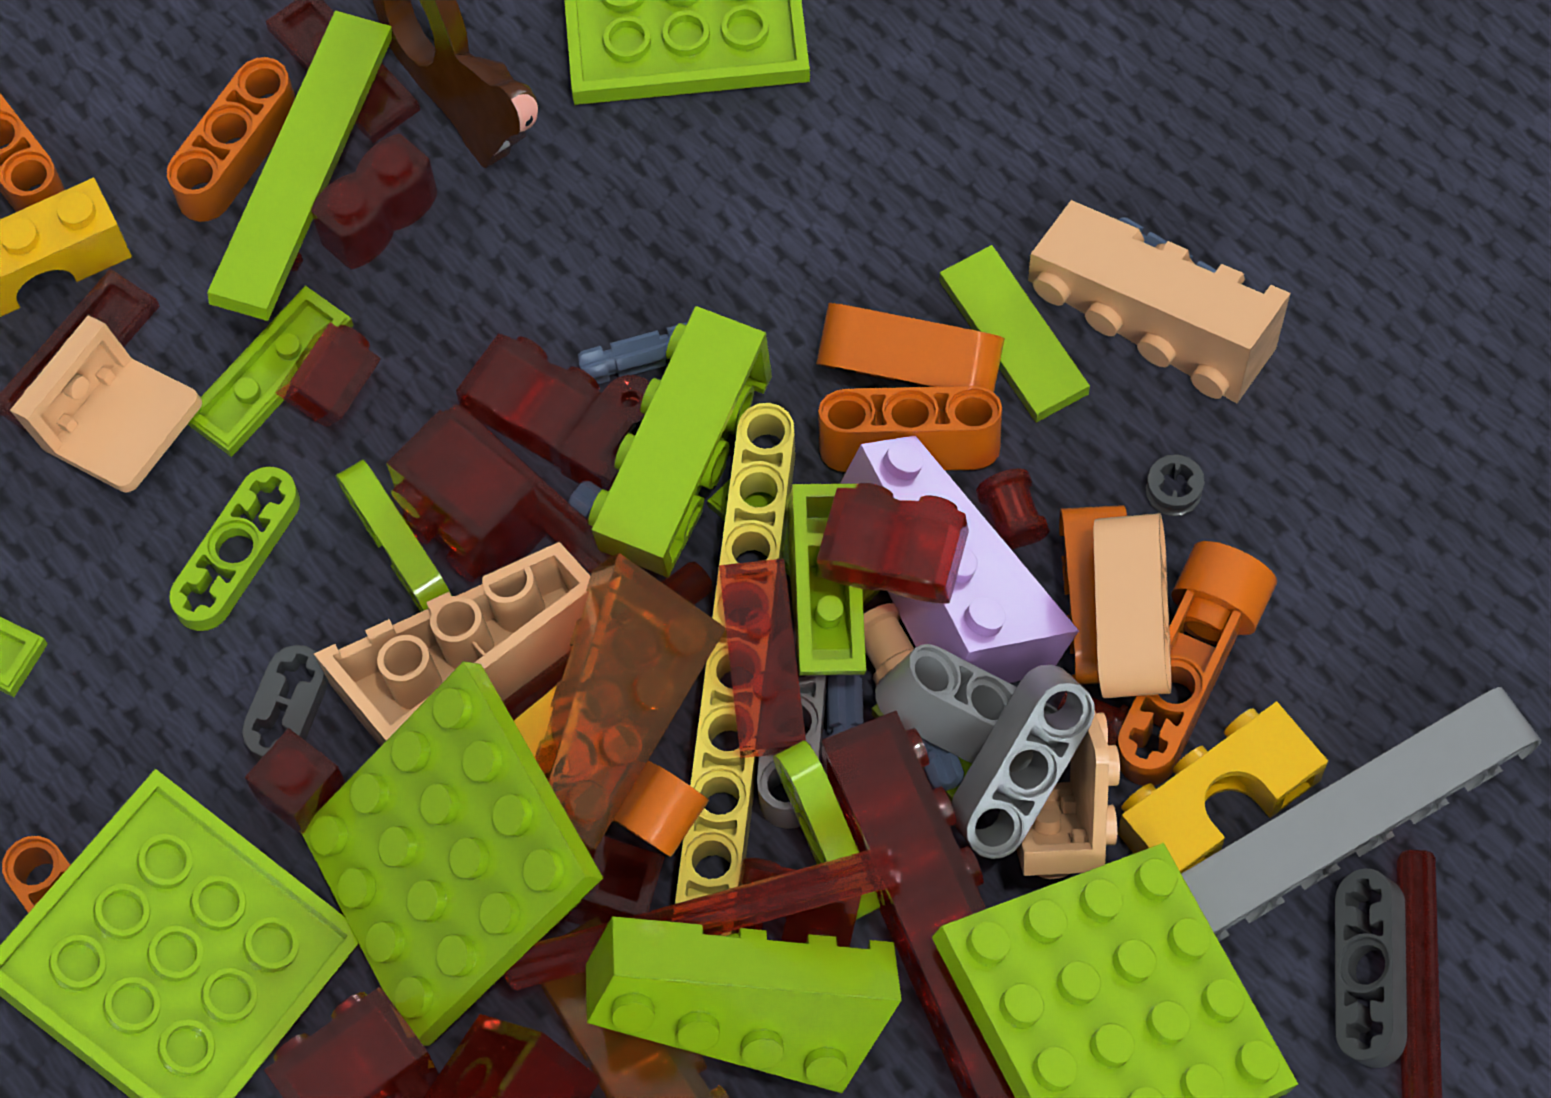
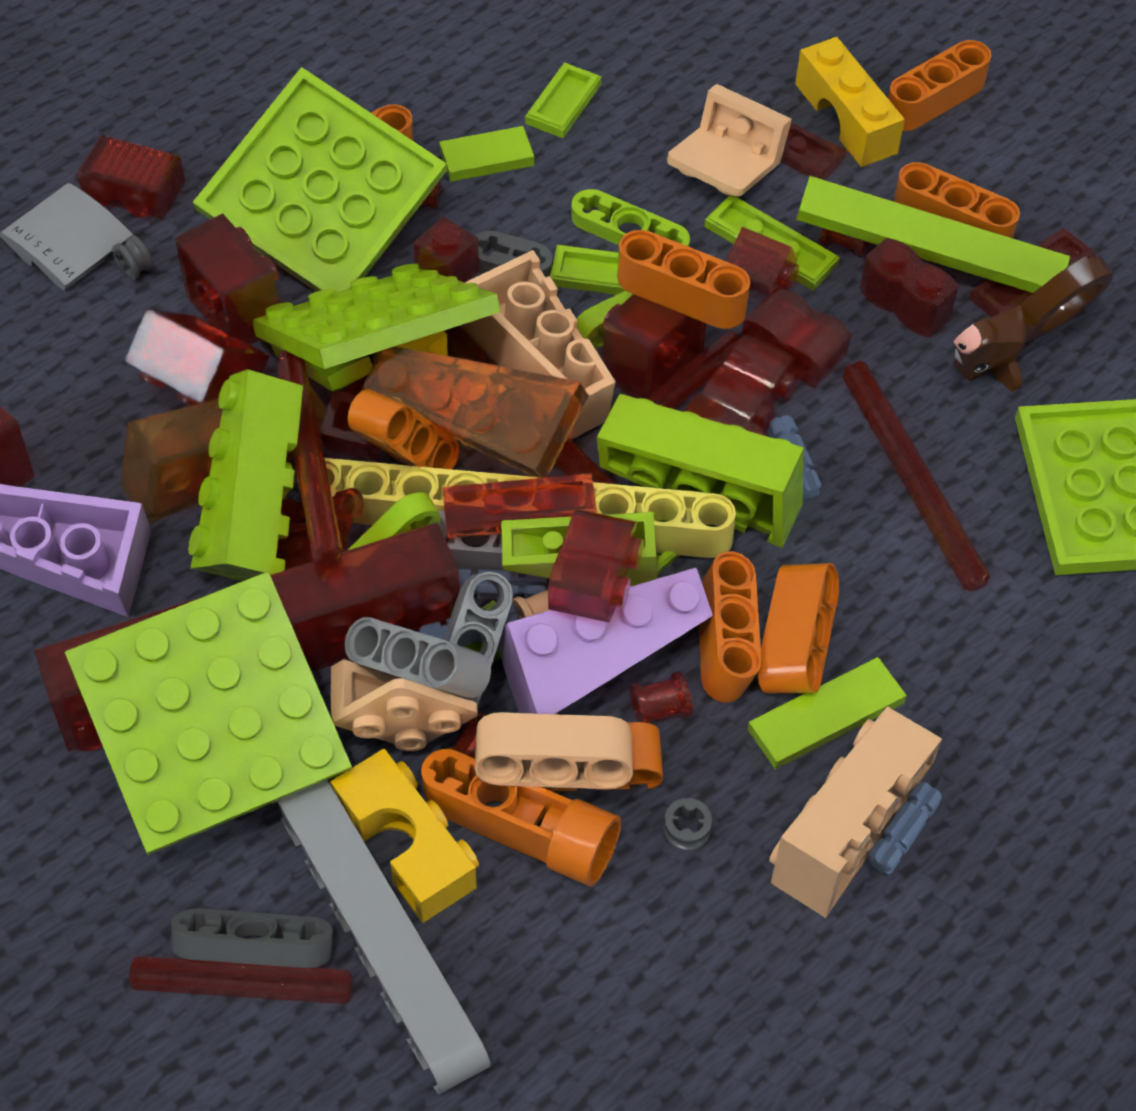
camera: 85 degrees right, 10 degrees down
(77, 746) = (486, 153): none -> lime tile
(312, 589) = (586, 270): none -> lime tile
(435, 402) = (683, 279): none -> orange beam
(445, 338) = (793, 326): none -> clear red brick
(661, 221) = (916, 477): none -> clear red axle

